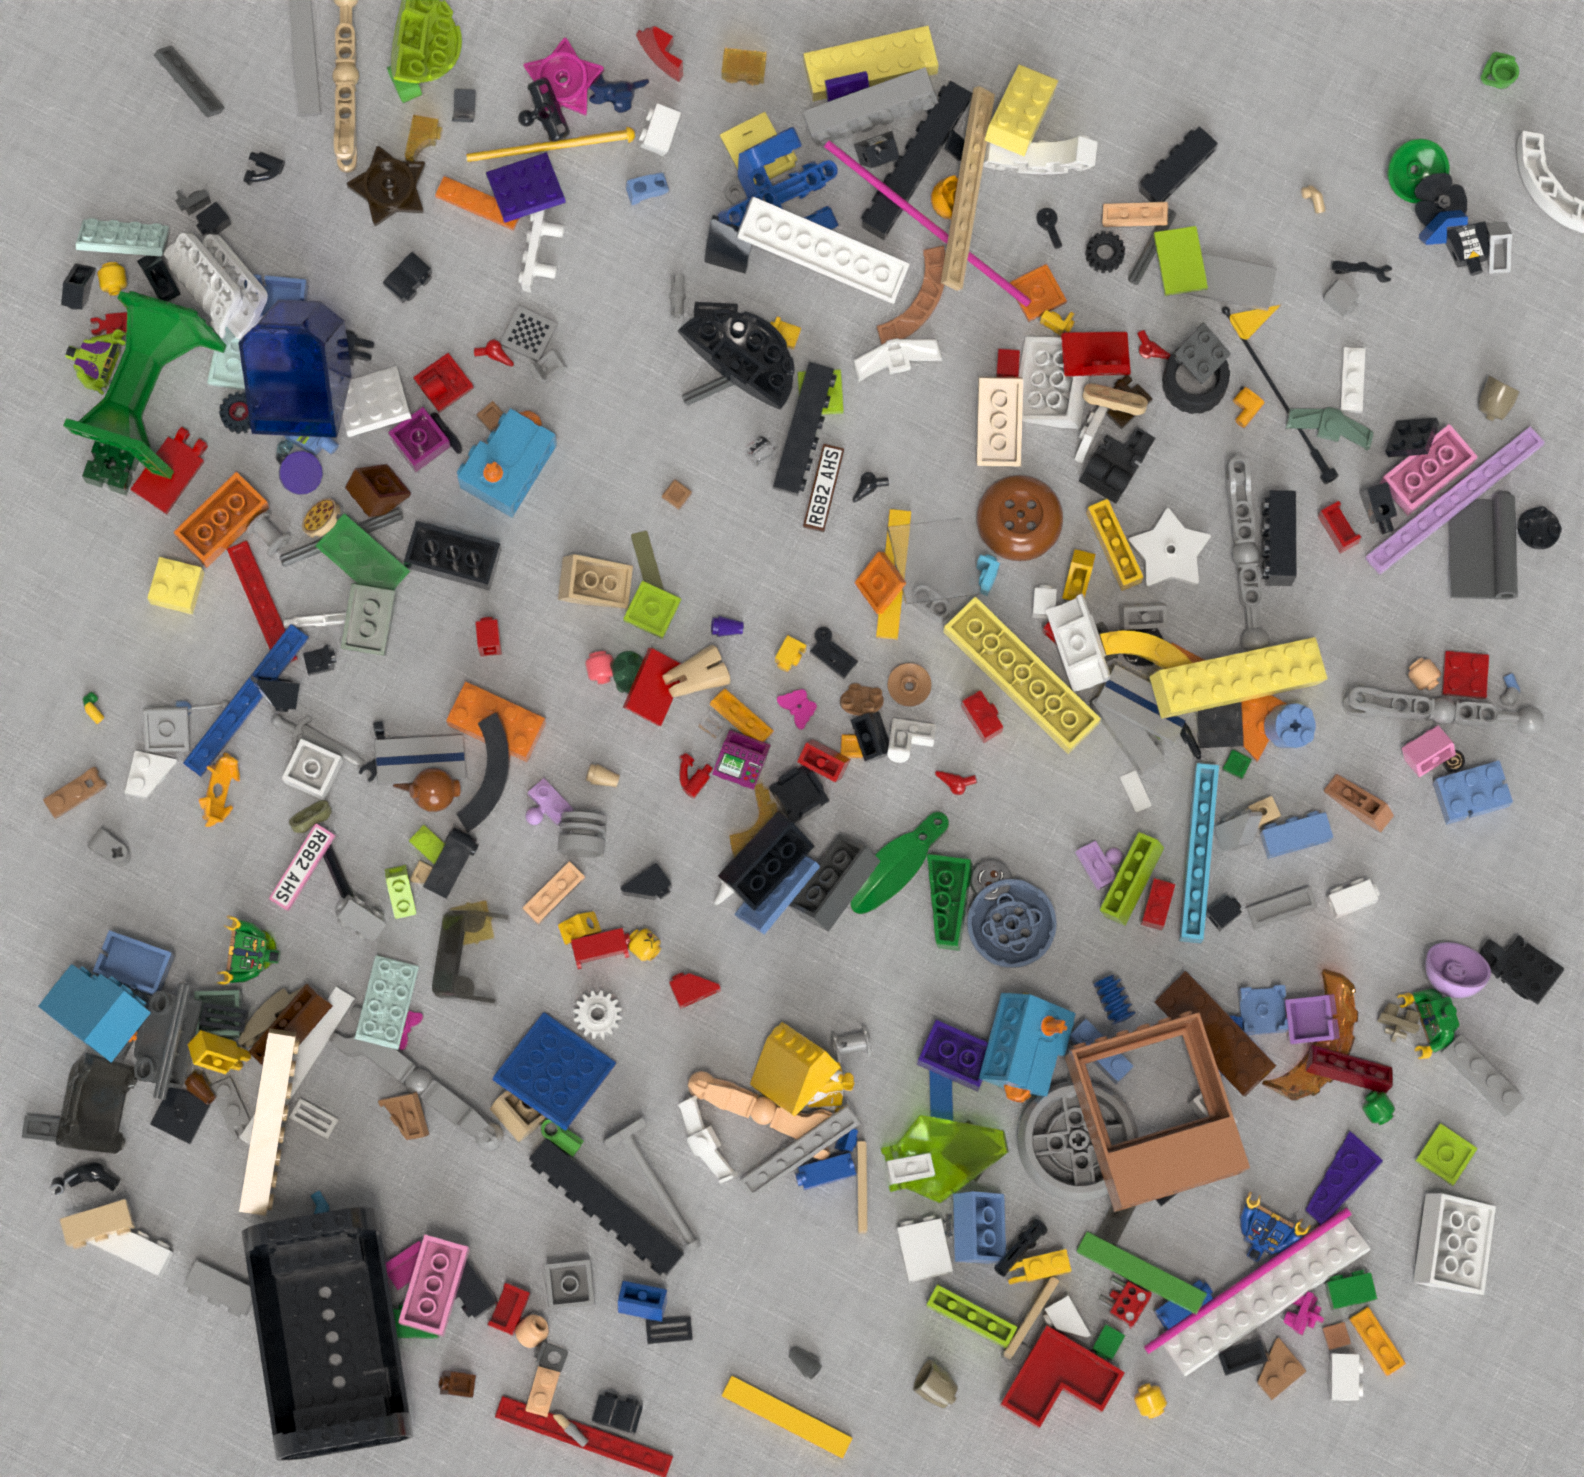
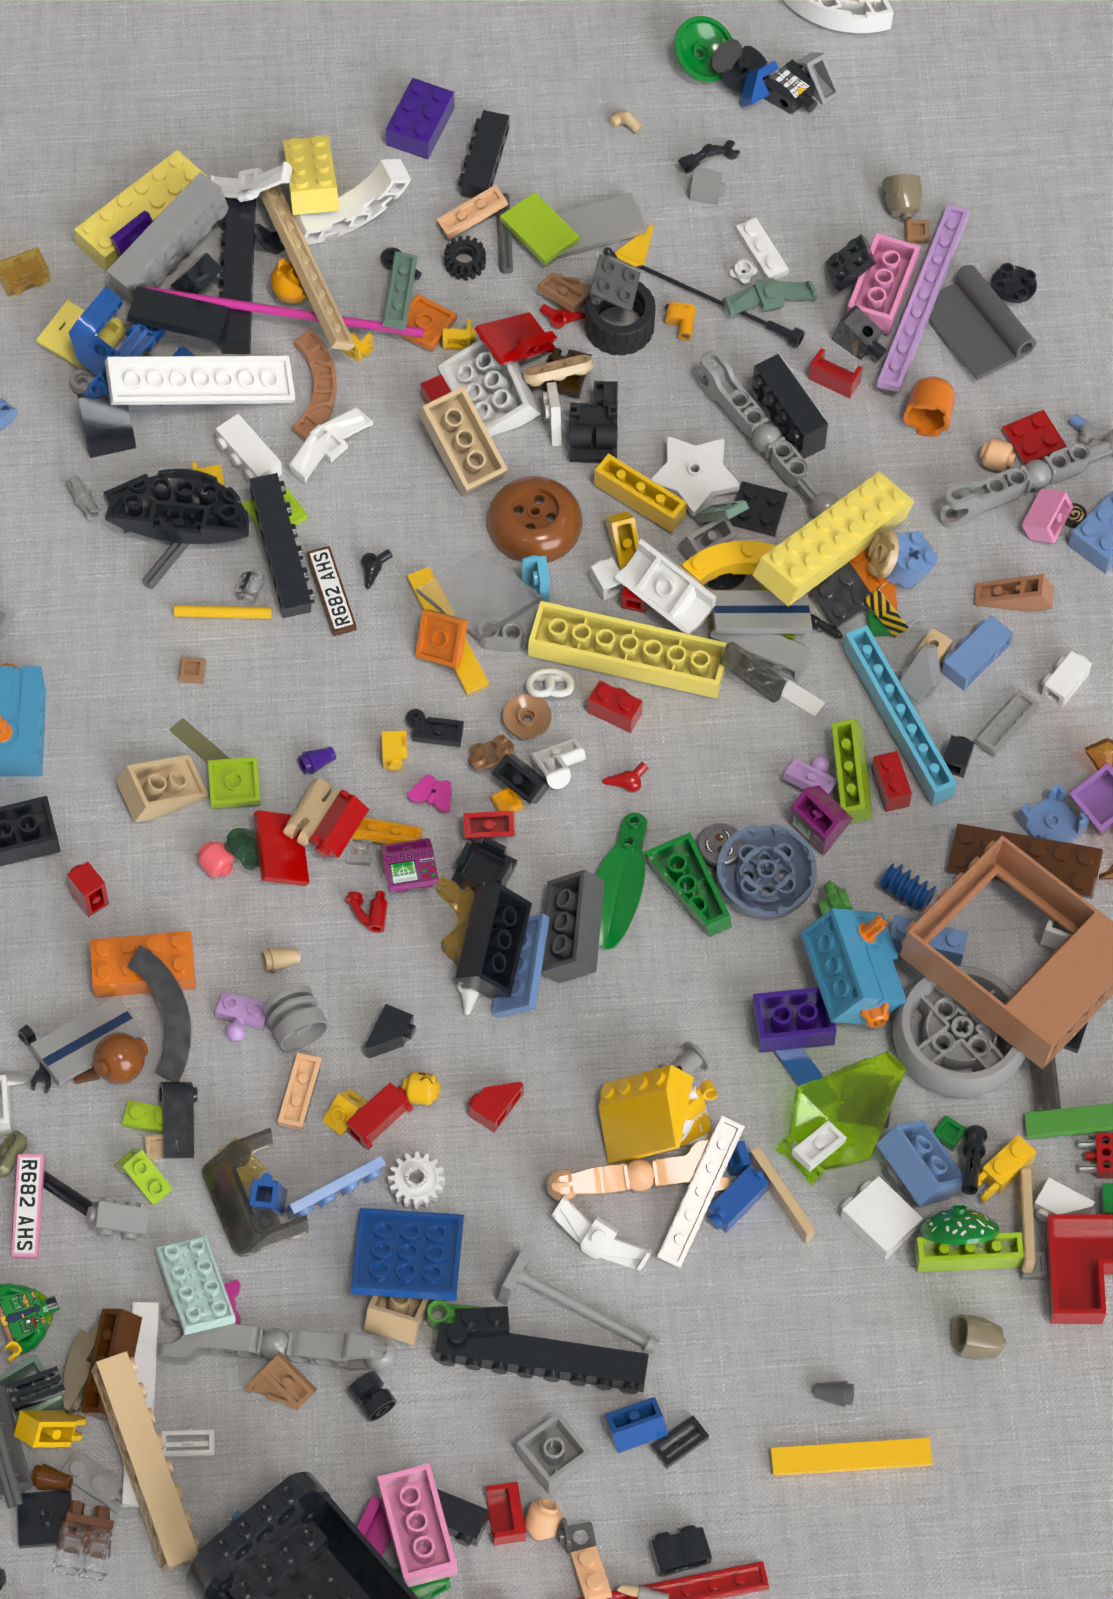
camera: 30 degrees left, 15 degrees down
(196, 1151) = (84, 1542): none -> clear hips
(465, 1163) = (370, 1393): none -> black wheel
(477, 967) = (268, 1195): none -> blue brick
(541, 988) = (344, 1185): none -> plate
(572, 1155) = (478, 1322): none -> black hinge
(706, 696) = (338, 825): none -> red brick
(728, 457) = (222, 611): none -> yellow piece
(828, 329) = (246, 449): none -> white brick
(838, 181) = (177, 314): none -> black tile
(939, 674) = (550, 676): none -> white piece
(965, 92) = (253, 181): none -> white plate
(971, 288) = (361, 348): none -> yellow bracket
(973, 1296) = (959, 1227): none -> green dish
(1020, 1212) = (949, 1132): none -> green tile
(1031, 255) = (400, 290): none -> sand green tile
(1049, 981) = (835, 898): none -> bright green piece
(1080, 904) = (818, 818): none -> magenta slope
(1105, 751) = (752, 672): none -> clear smoke plate
(1145, 103) = (420, 118): none -> dark purple brick
(1163, 603) = (721, 511): none -> sand green tile
(1168, 328) = (564, 291): none -> medium nougat wing
(1203, 609) = (764, 509): none -> black plate
(1242, 762) = (886, 612): none -> sticker
(1271, 713) = (883, 553): none -> tan tile
(1328, 387) = (743, 266): none -> white plate
(1396, 601) = (930, 406): none -> orange cylinder
(1491, 435) = (917, 231): none -> medium nougat tile

